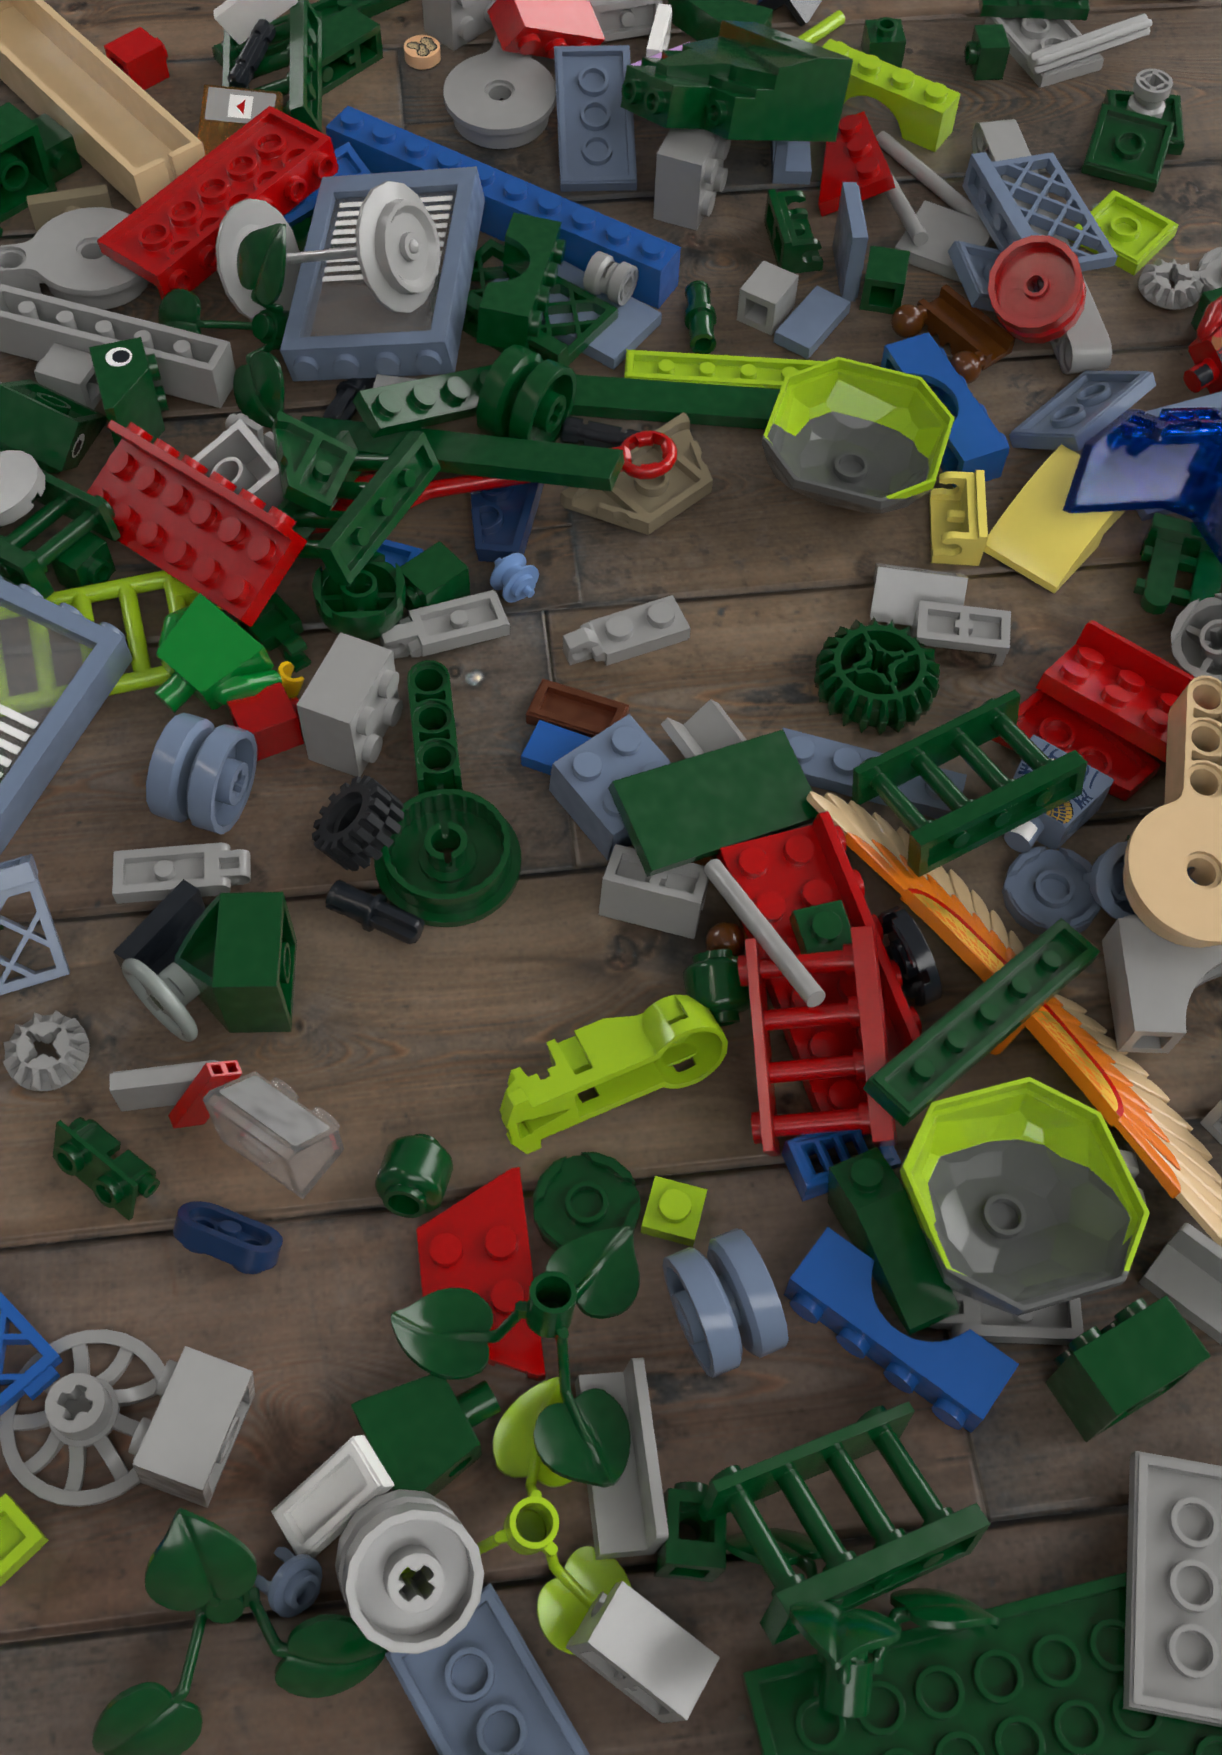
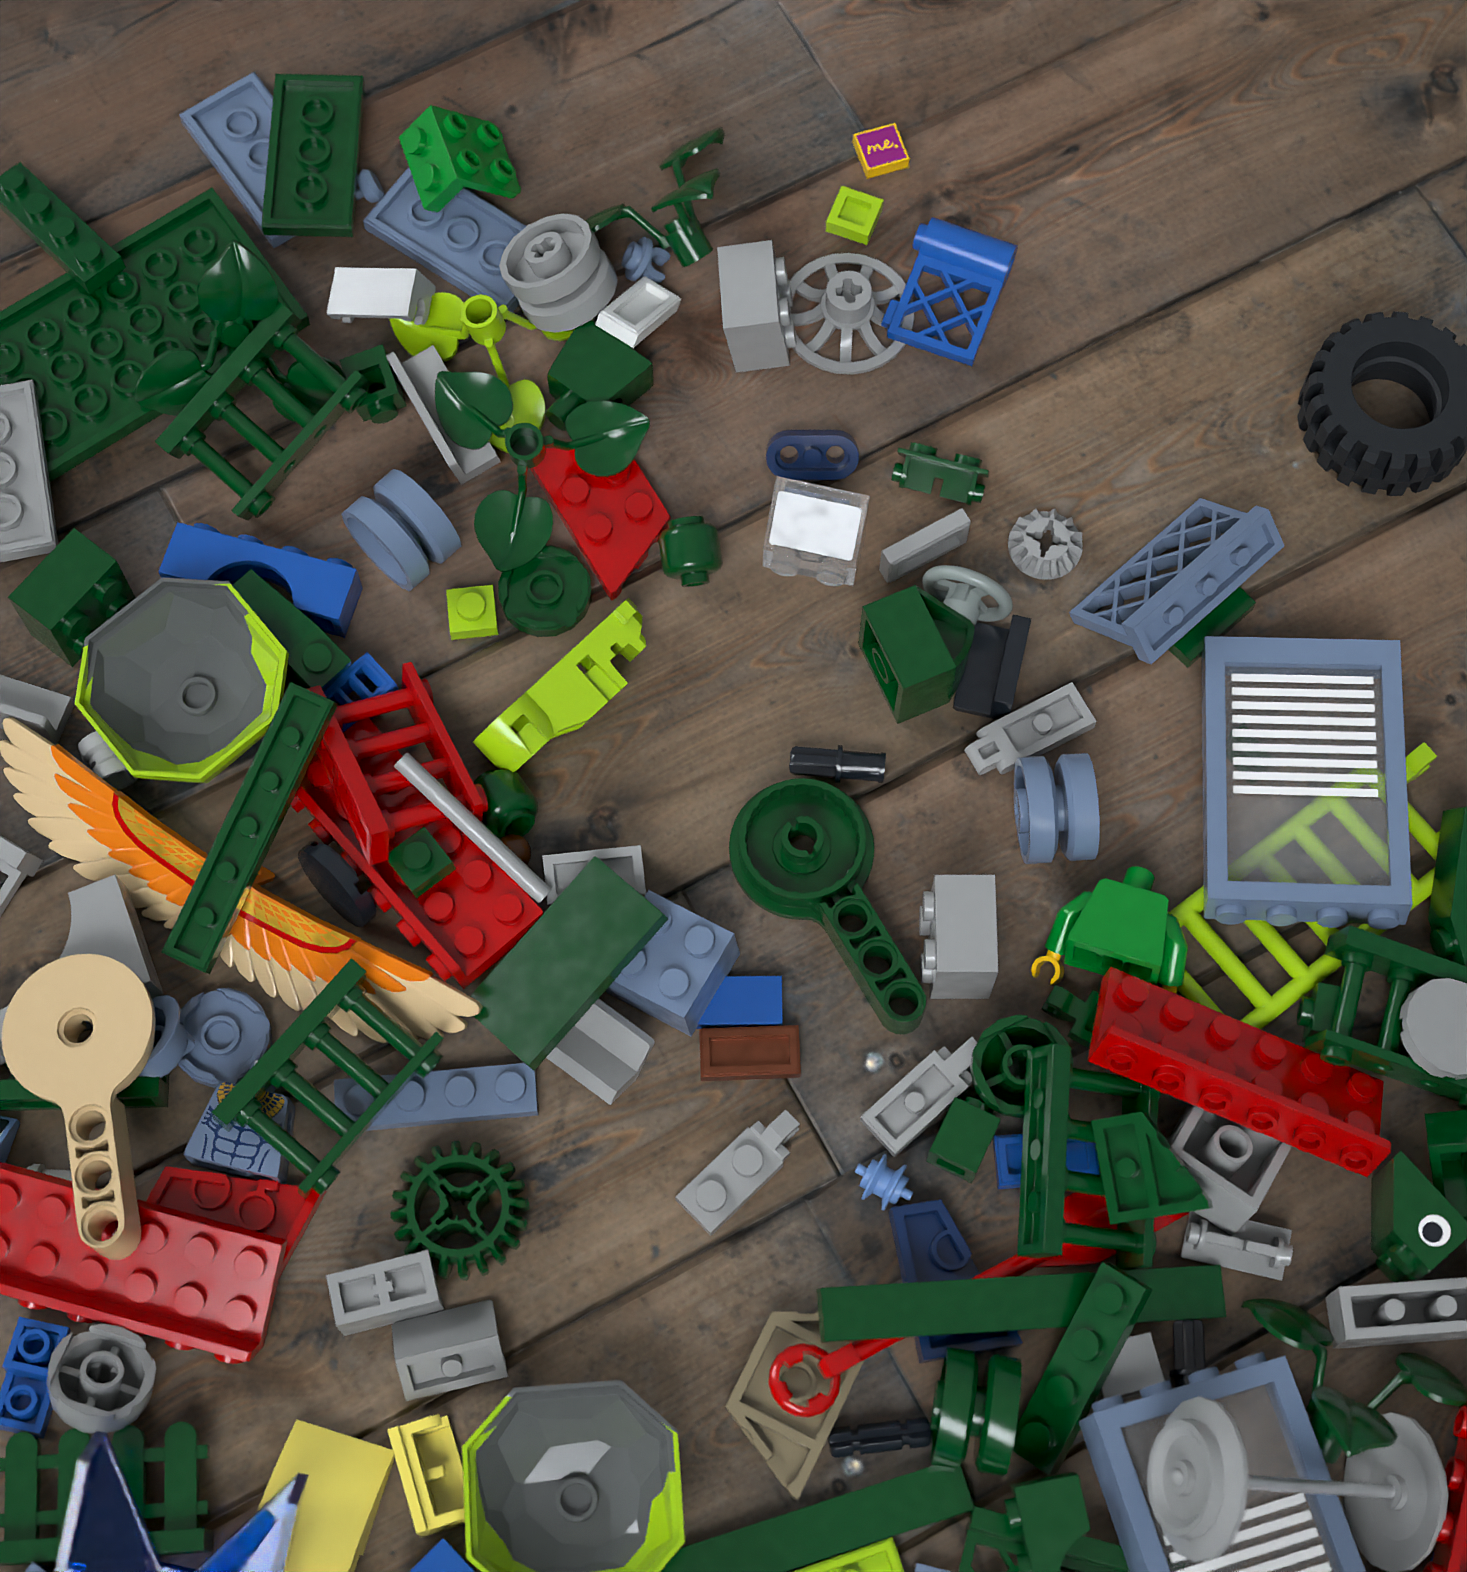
camera: 160 degrees right, 10 degrees up
(190, 1108) = (884, 535): red piece -> none
(270, 719) = (1035, 906): red brick -> none
(358, 823) = (874, 832): black tyre -> none

